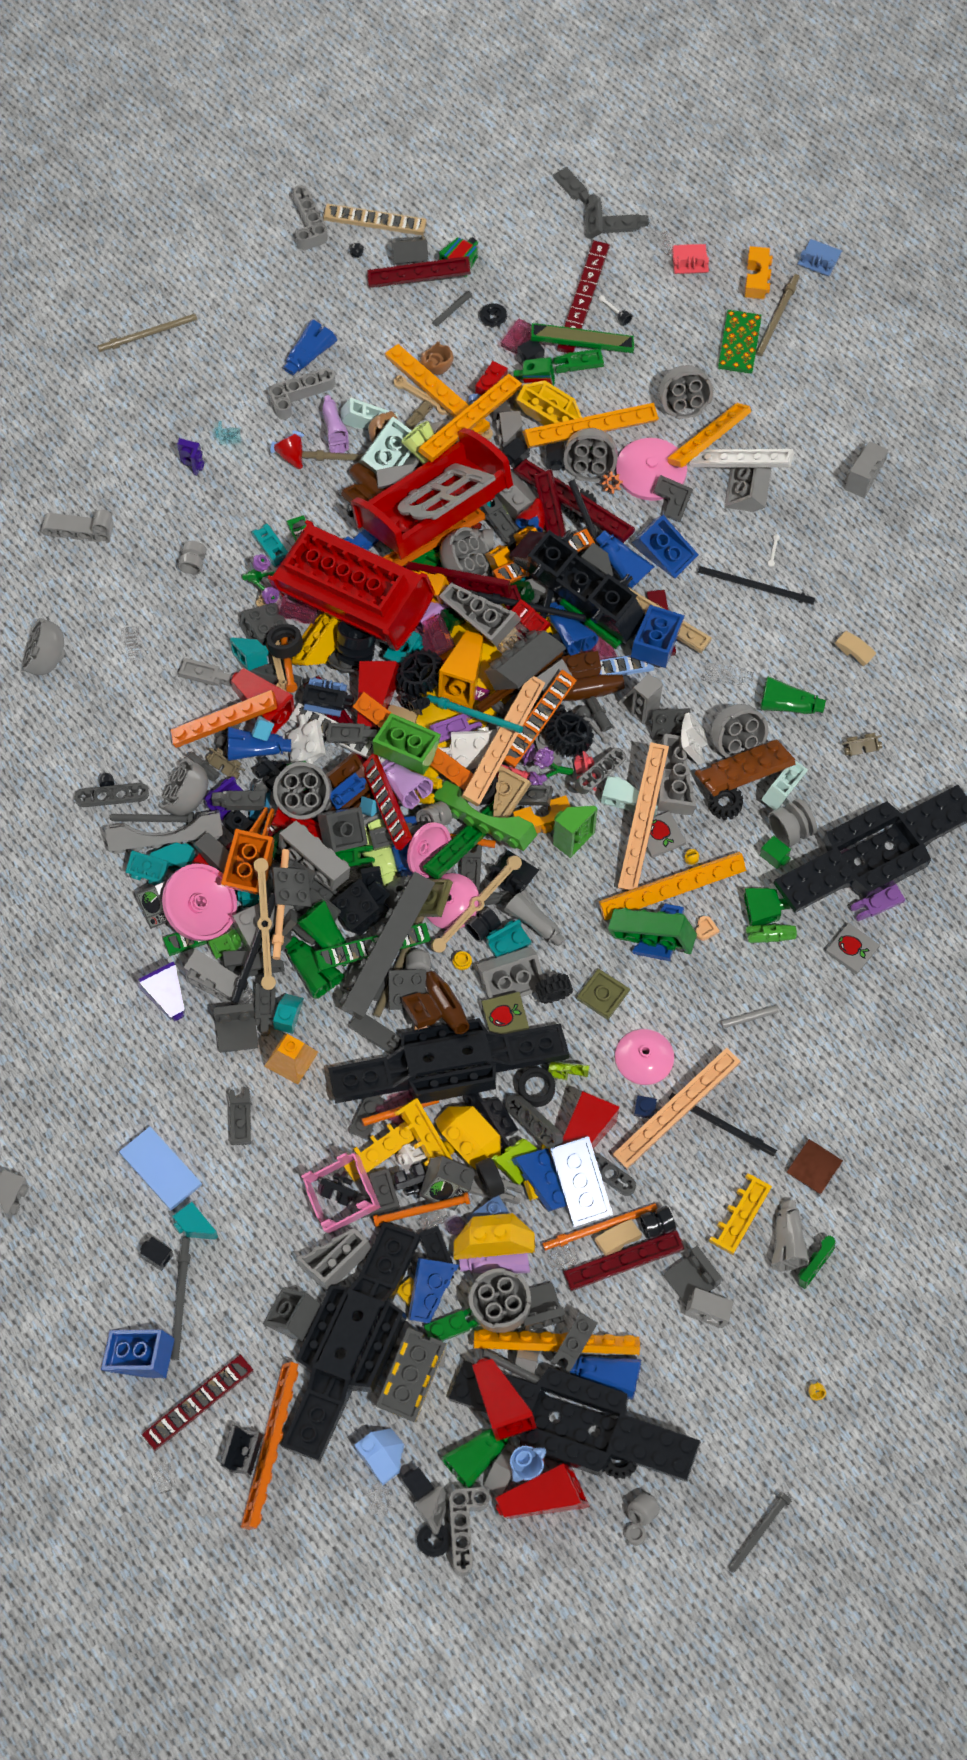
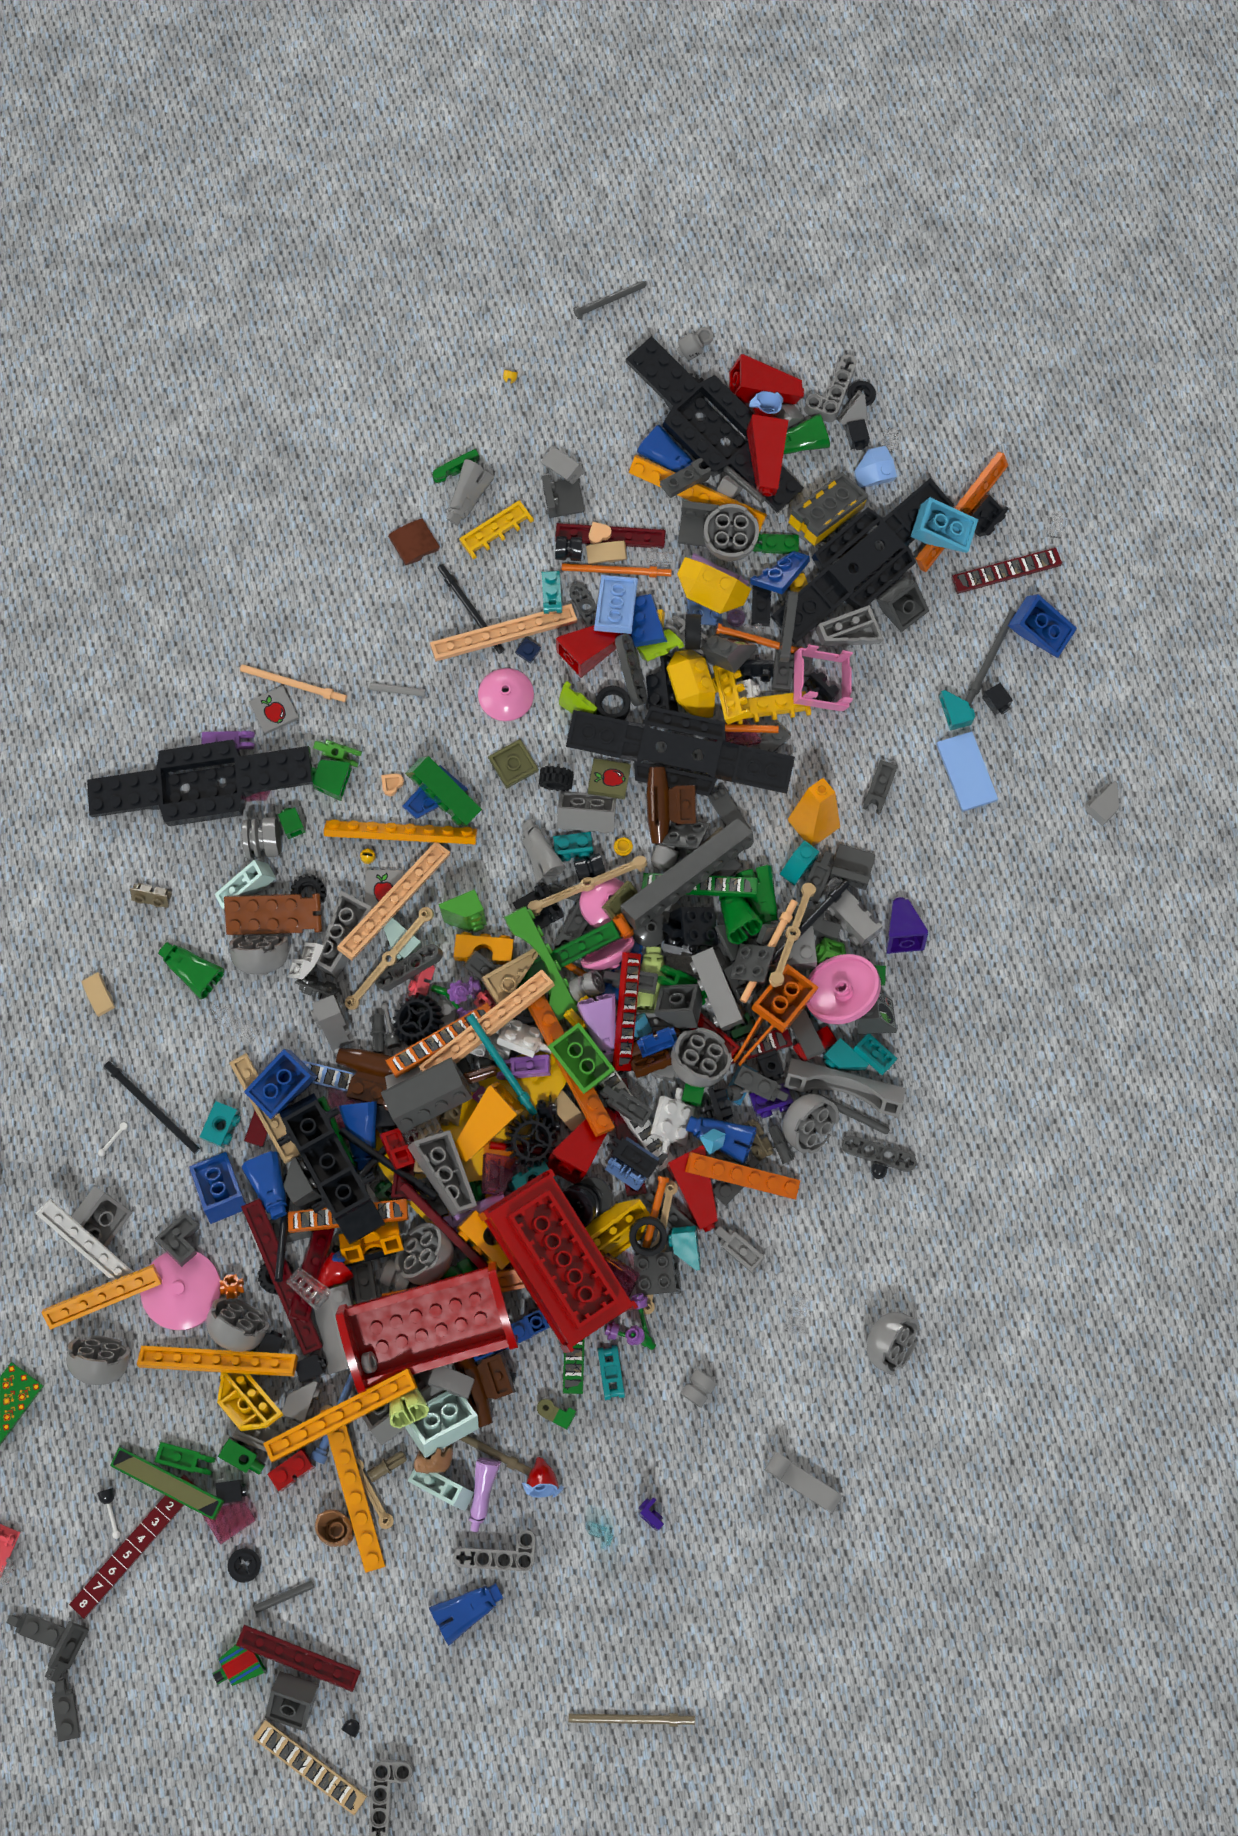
camera: 155 degrees left, 10 degrees up
(280, 1402) = (944, 526): none -> medium azure slope
(301, 498) = (552, 1413): none -> leg
(398, 1226) = (788, 626): none -> dark grey beam
(427, 874) = (623, 926): none -> orange pin
(466, 473) = (452, 1307): light grey window -> none
(467, 458) = (369, 1362): none -> light grey tile
(541, 492) = (318, 1287): none -> clear slope
(635, 732) = (425, 914): none -> tan piece
(635, 1252) = (599, 532): none -> light nougat tile
(651, 1170) = (551, 592): none -> teal plate
(690, 582) = (219, 1113): none -> teal brick
(812, 984) = (327, 693): none -> light nougat bar

